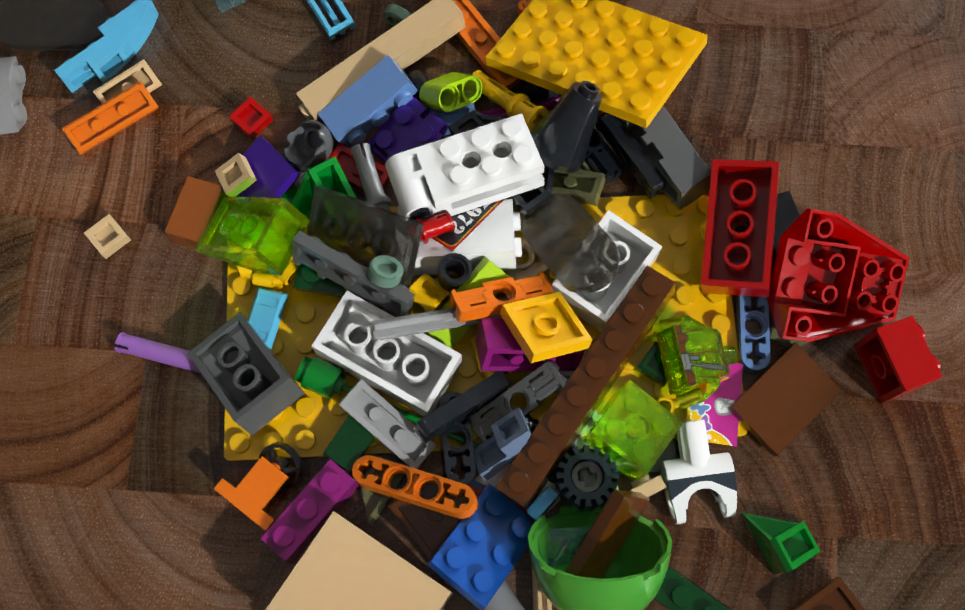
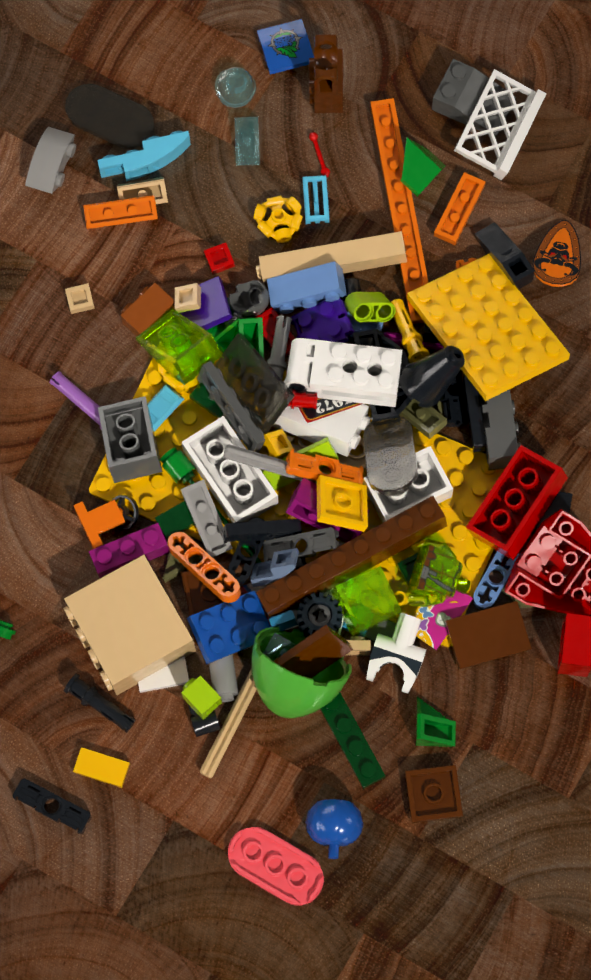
camera: 30 degrees right, 0 degrees up
(297, 45) = (279, 218): none -> yellow piece
(385, 271) = (253, 415): sand green tile -> none
(394, 14) = (361, 229): sand green tile -> none
(458, 264) = (304, 431): black piece -> none

